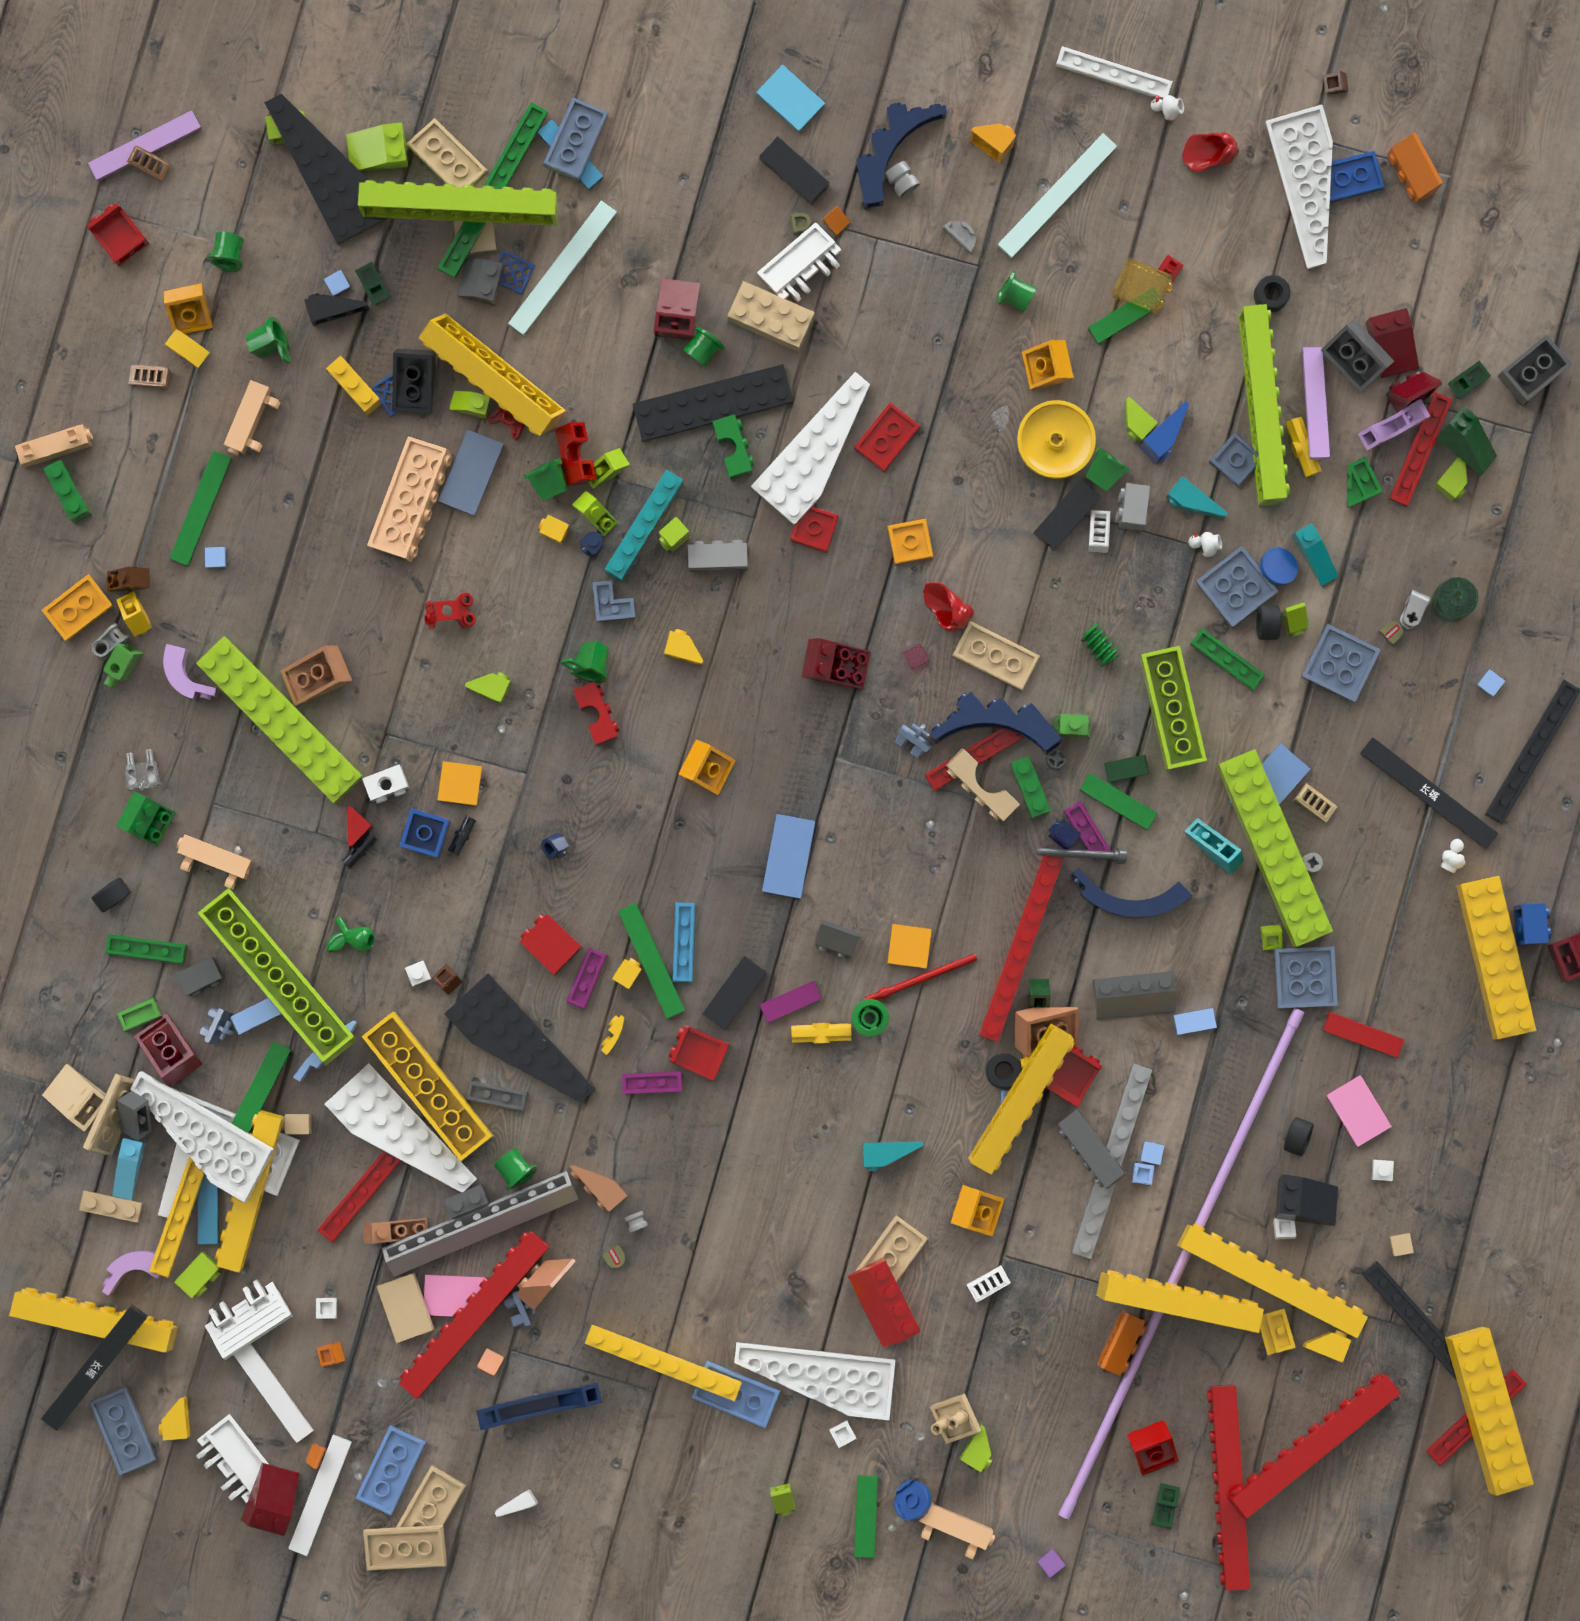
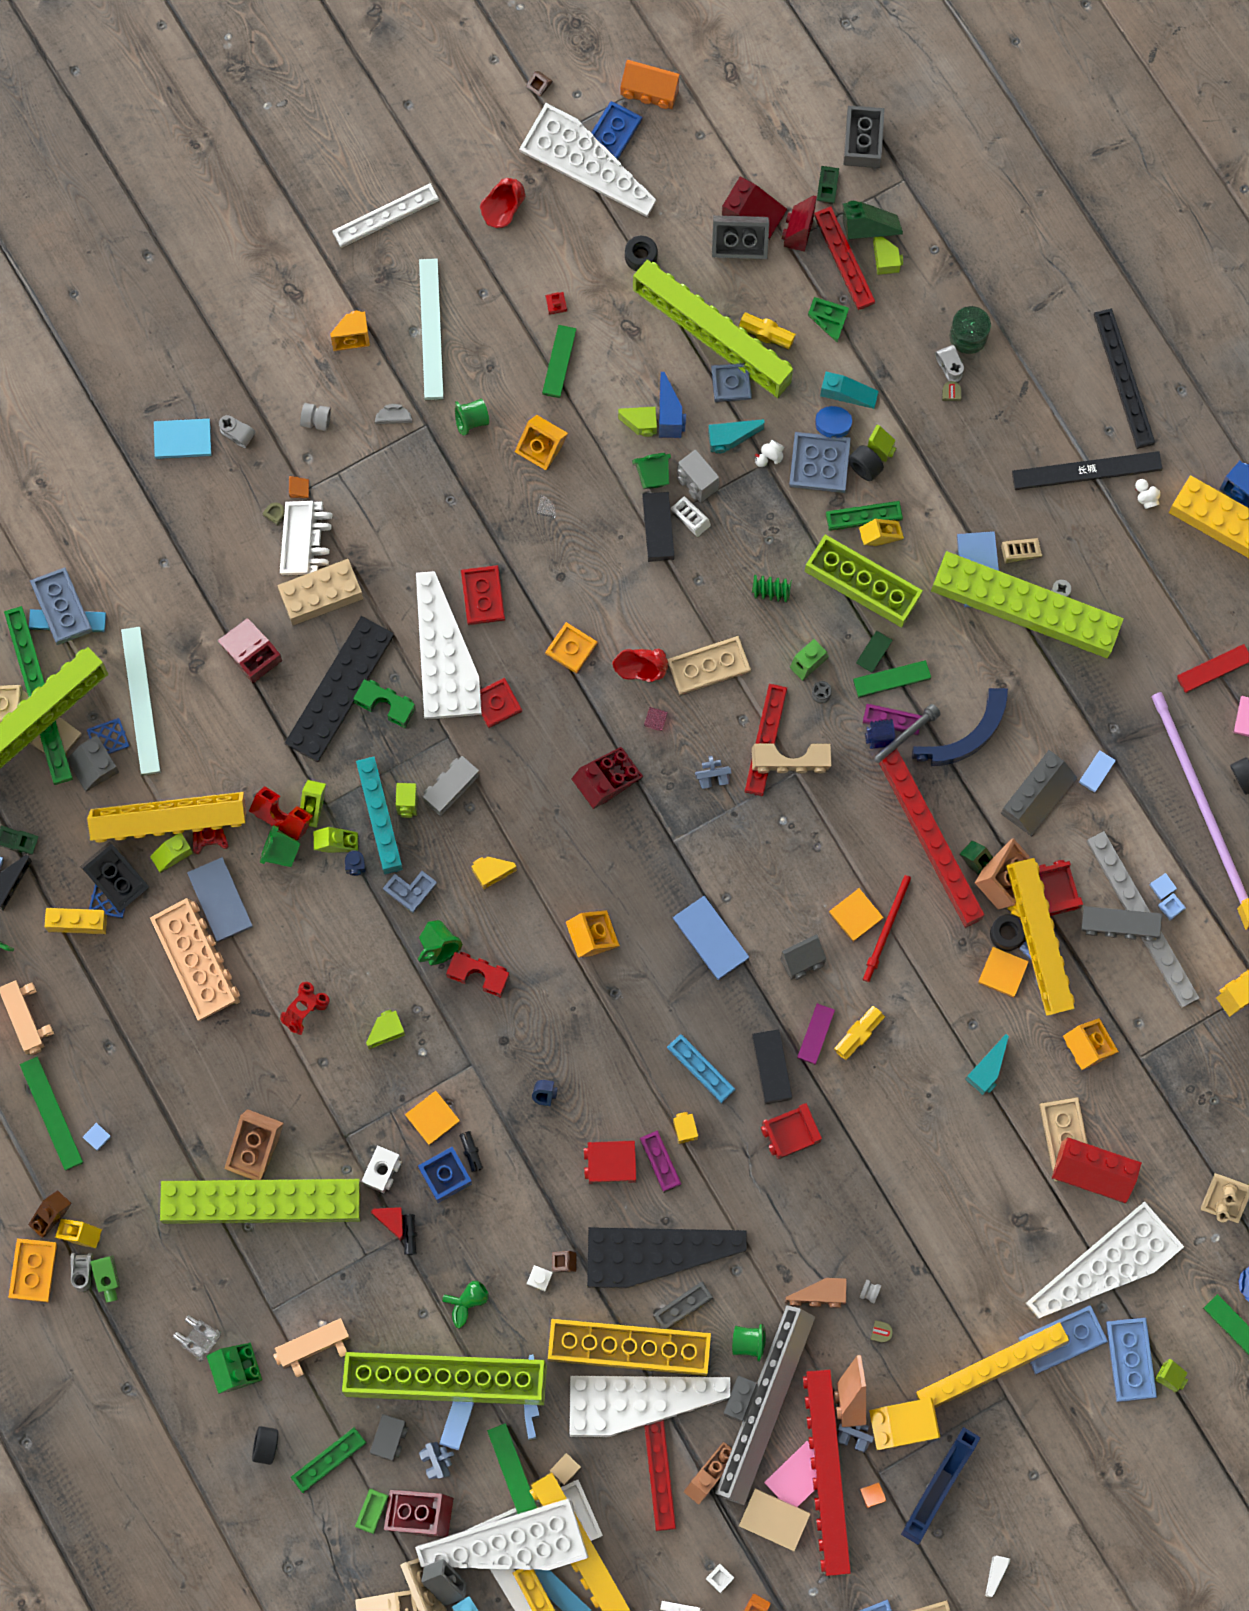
camera: 45 degrees left, 10 degrees down
(174, 667) = (157, 1245): lavender arch -> none
(554, 529) = (318, 879): yellow brick -> none
(560, 1337) = (904, 1424): none -> yellow slope
(616, 1029) = (718, 1174): yellow slope -> none
(651, 960) = (692, 1103): green tile -> none
(651, 1082) = (780, 1185): magenta plate -> none
(703, 347) = (295, 655): green piece -> none
(768, 1457) = (1131, 1359): none -> medium blue tile
(794, 170) = (235, 482): black piece -> none
(834, 135) = (238, 432): none -> light grey piece
(842, 1434) = (1163, 1289): white plate -> none
(870, 1017) = (882, 986): green piece -> none
(884, 143) = (276, 383): dark blue arch -> none
(970, 1095) = (1003, 972): none -> light orange tile
(971, 1286) = (1145, 1100): white slope -> none
(999, 715) = (753, 699): dark blue arch -> none
(1030, 787) = (834, 730): green arch -> none
(1056, 439) = (599, 483): yellow dish -> none
(1143, 285) = (550, 329): clear yellow panel -> none
(1170, 105) = (445, 198): white animal -> none
(1215, 846) = (987, 642): teal slope -> none
(1225, 685) = (881, 532): none -> yellow slope
(1271, 937) = (1087, 665): lime slope -> none
(1305, 977) = (1137, 668): sand blue plate -> none
(1315, 403) = (745, 294): lavender tile -> none
(1340, 663) = (940, 444): sand blue plate -> none
(1394, 426) = (812, 257): lavender arch -> none
(1490, 683) = (1050, 361): light blue tile -> none

